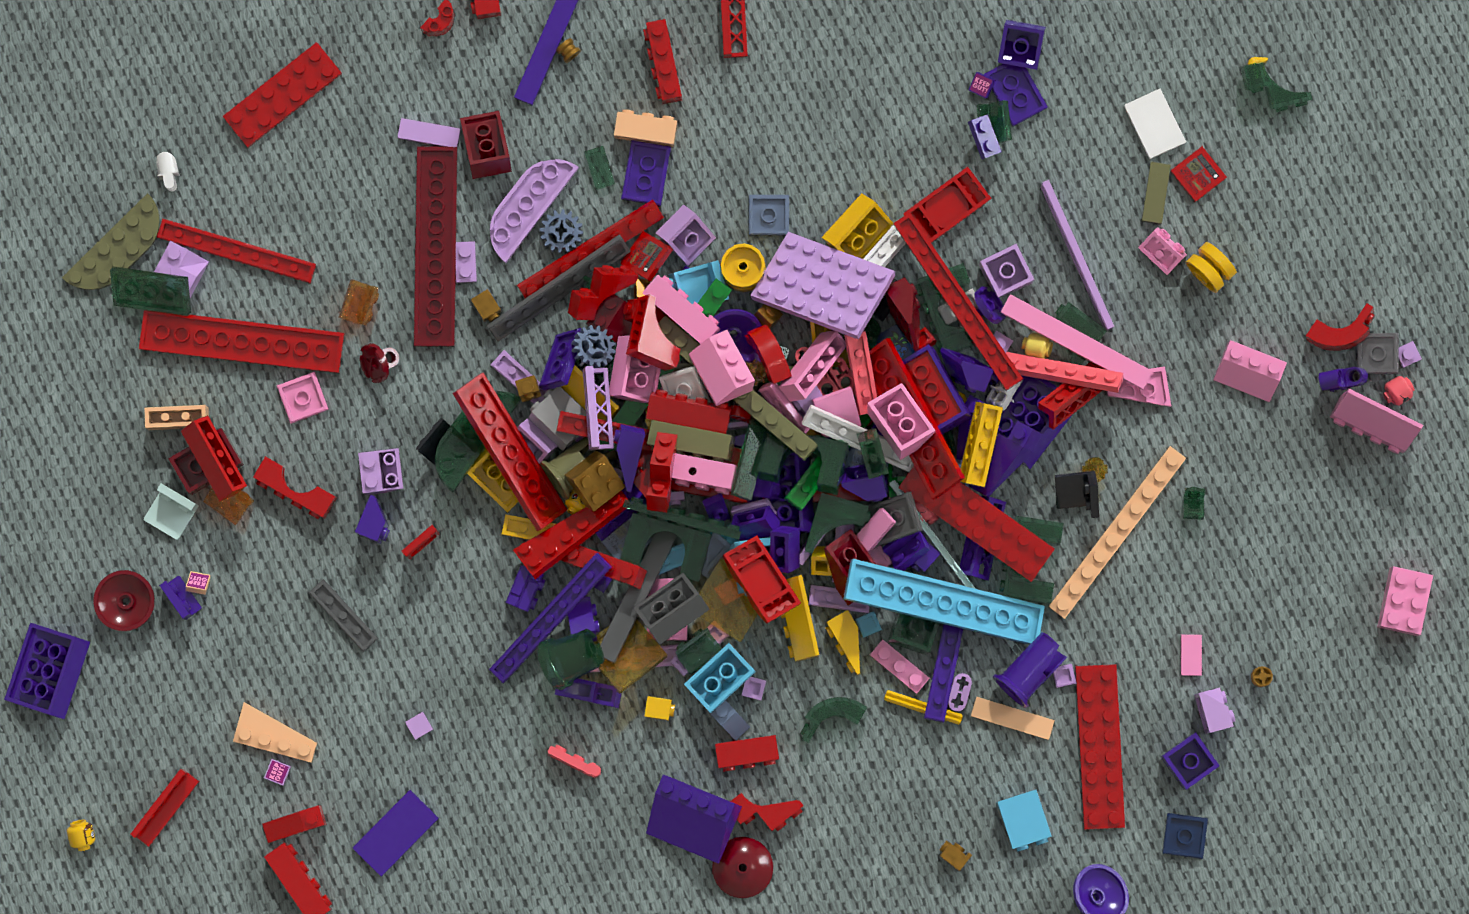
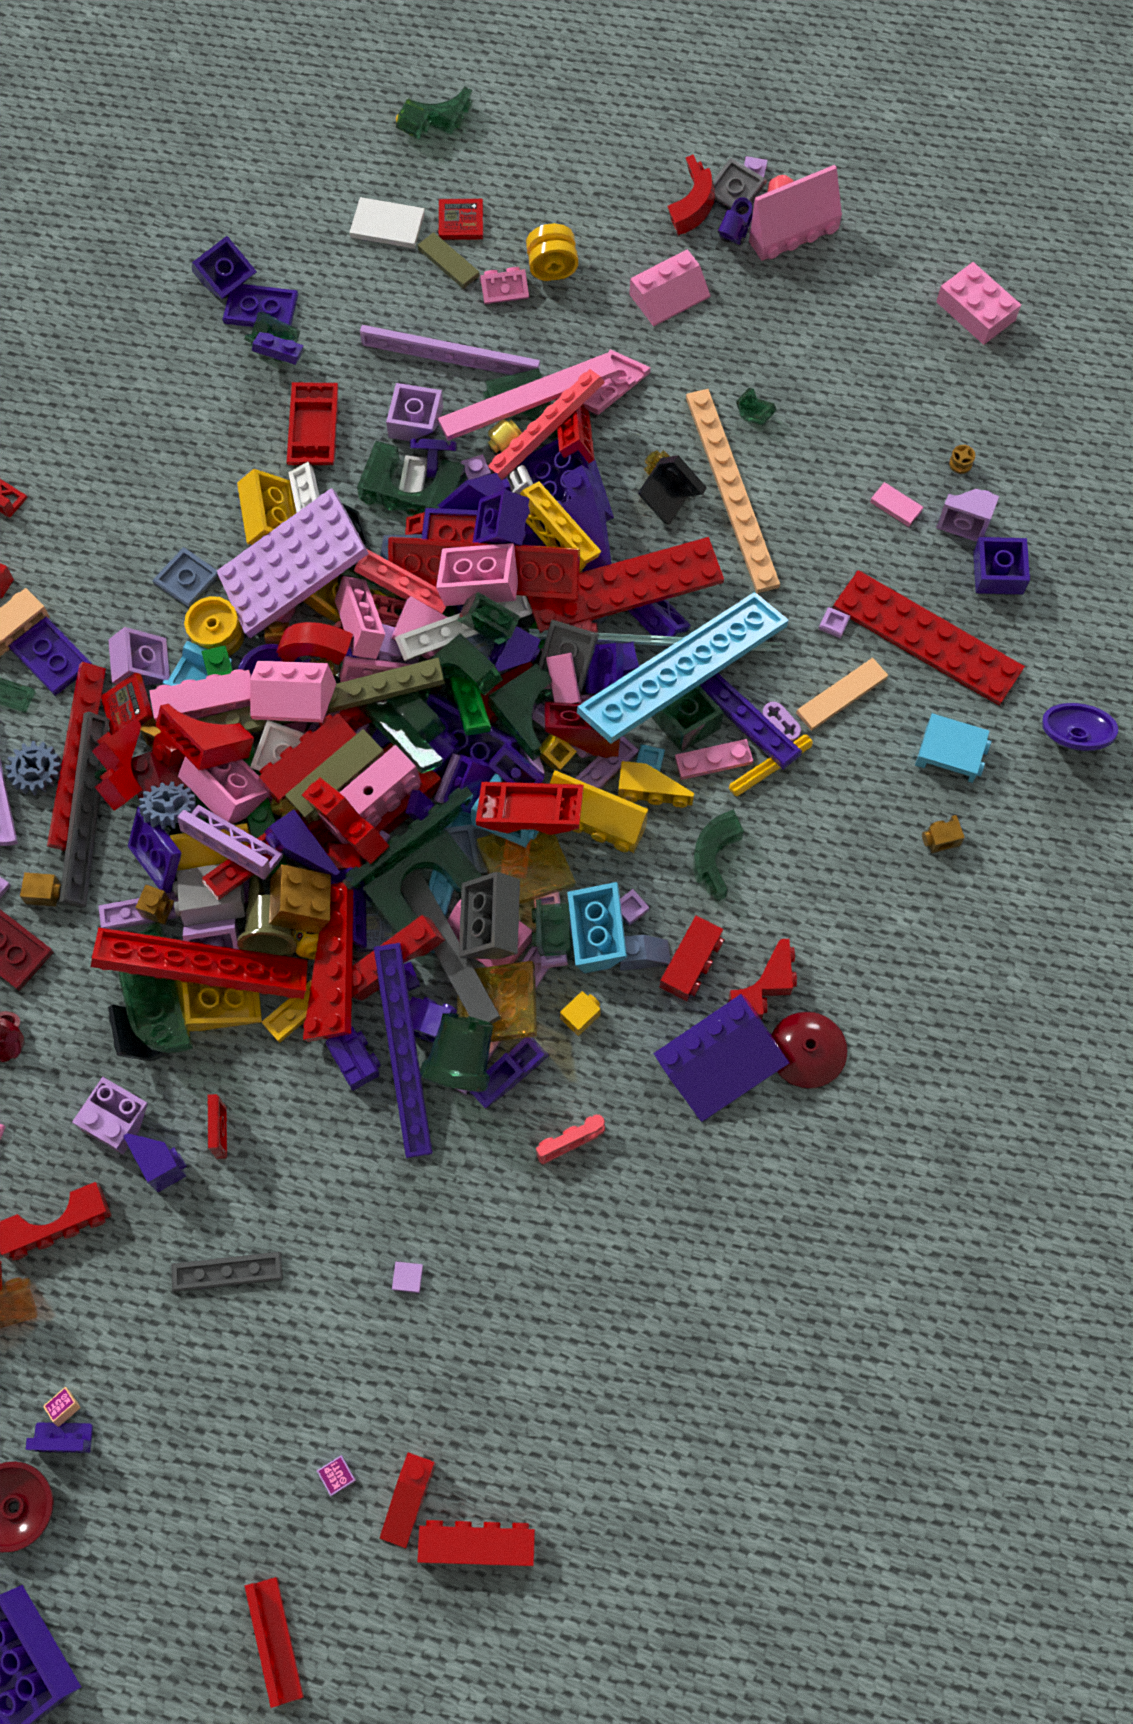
camera: 55 degrees left, 15 degrees down
(266, 733) = (288, 1453): light nougat wing -> none
(395, 833) = (503, 1391): dark purple tile -> none
(904, 310) = (378, 512): dark red slope -> none
(948, 408) = (501, 518): none -> dark purple slope
(958, 301) = (405, 463): red plate -> none
(982, 85) = (230, 326): tile -> none
(1018, 586) = (718, 598): clear green arch -> none
(1030, 669) = (809, 641): dark purple piece -> none
(1185, 835) = (1069, 622): dark blue tile -> none

